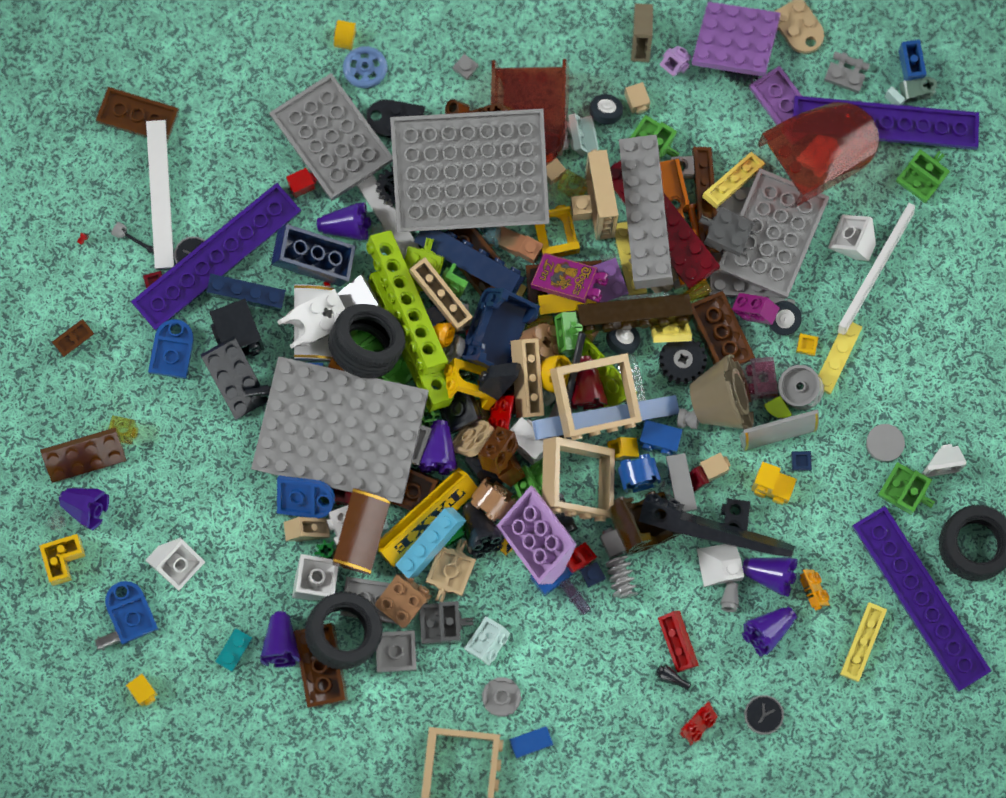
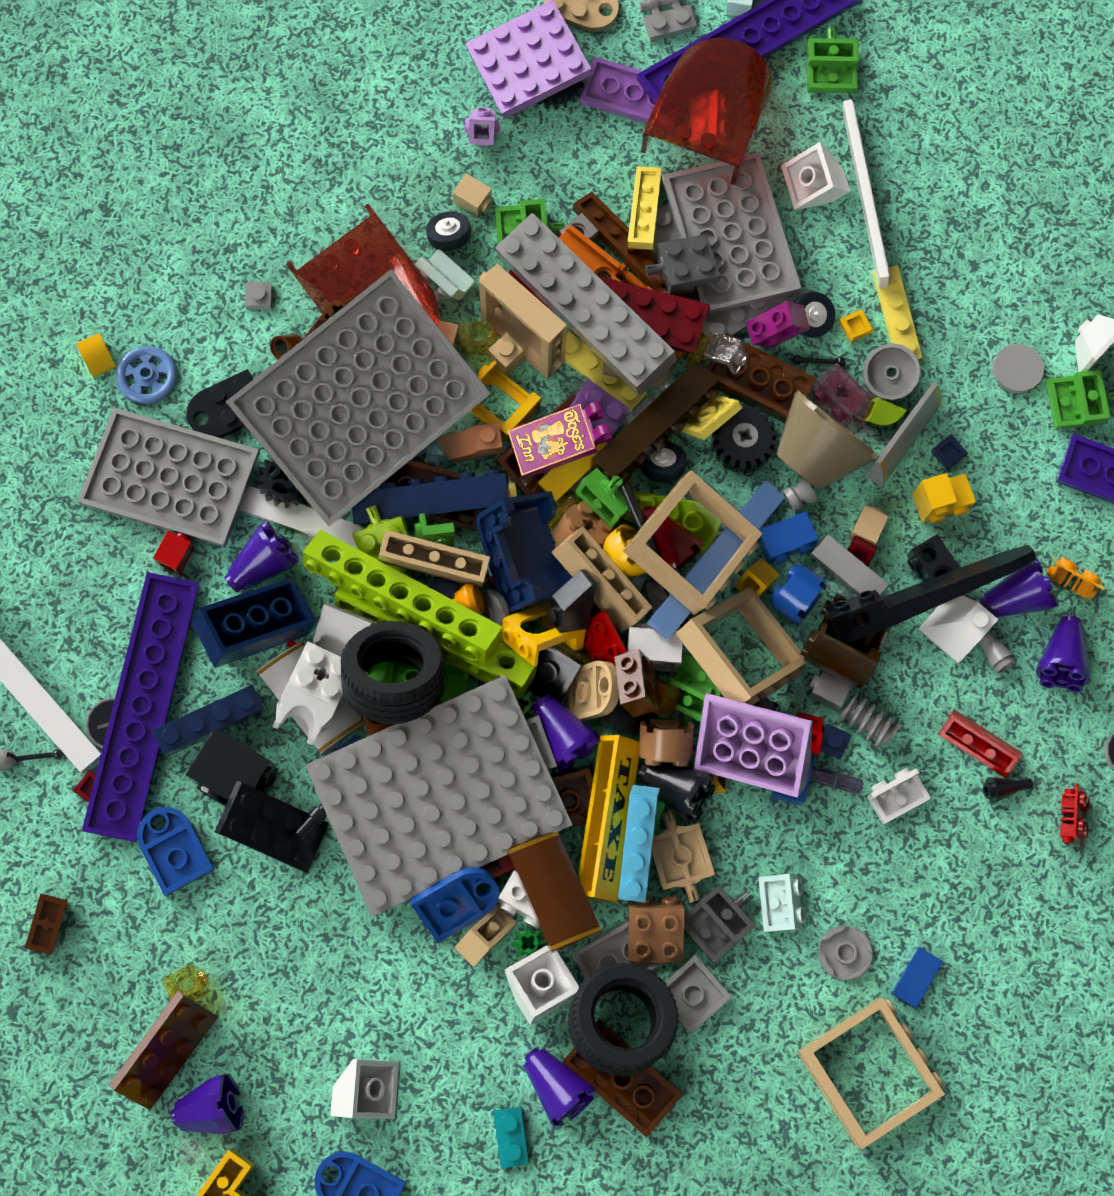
camera: 40 degrees left, 0 degrees up
(604, 633) = (898, 796): none -> white bracket
(642, 32) = (423, 123): dark tan slope -> none
(711, 301) = (727, 351): none -> clear bracket
(780, 359) = (797, 359): none -> black hinge

